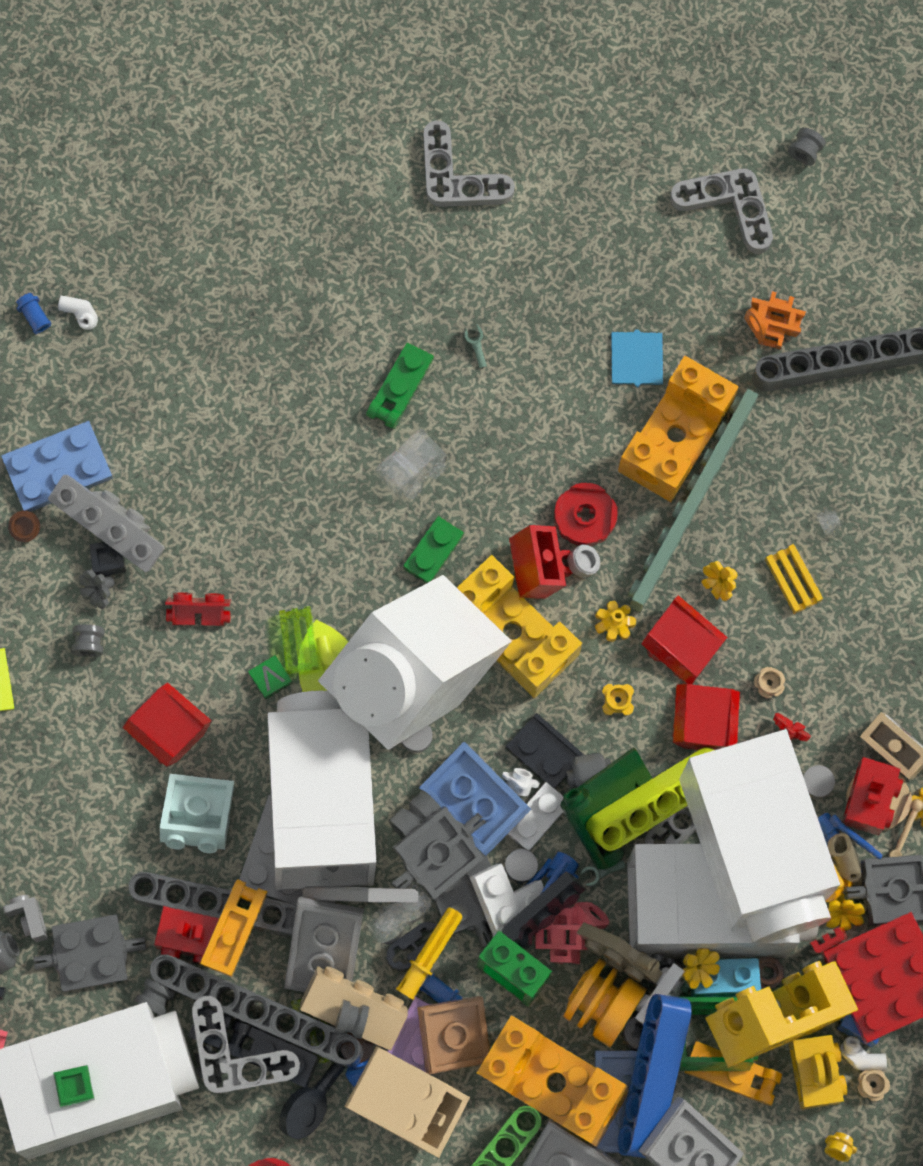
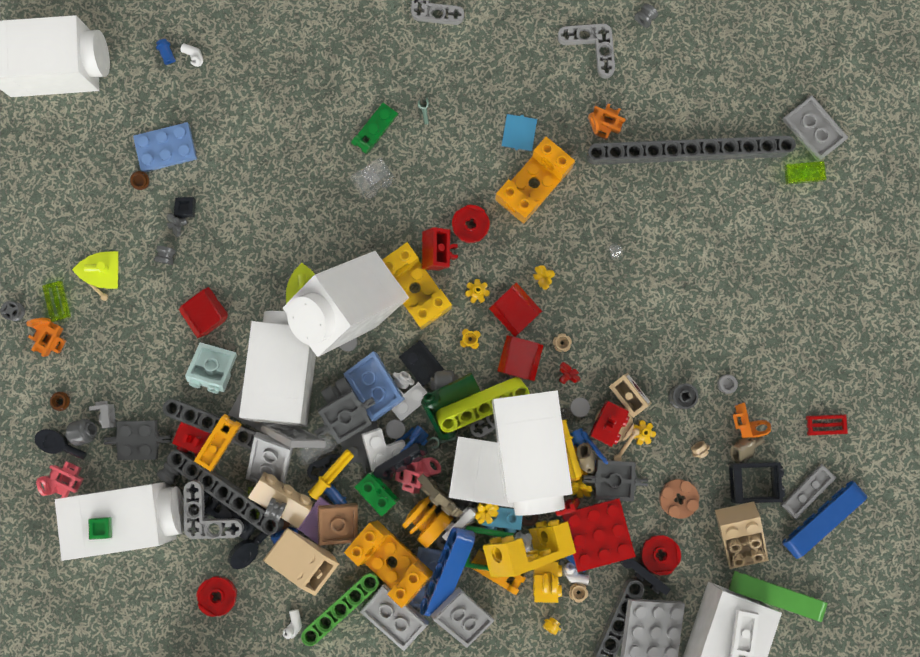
camera: 20 degrees right, 10 degrees up
(108, 521) = (188, 185): light grey bracket -> none
(211, 609) = (225, 244): red hinge -> none
(270, 677) = (268, 293): green tile -> none
(296, 614) = (289, 258): clear neon green tile -> none
(433, 550) = (377, 231): green plate -> none
(584, 561) = (464, 252): light grey tile -> none
(686, 510) = (540, 218): sand green plate -> none
(782, 556) = (584, 267): yellow tile -> none

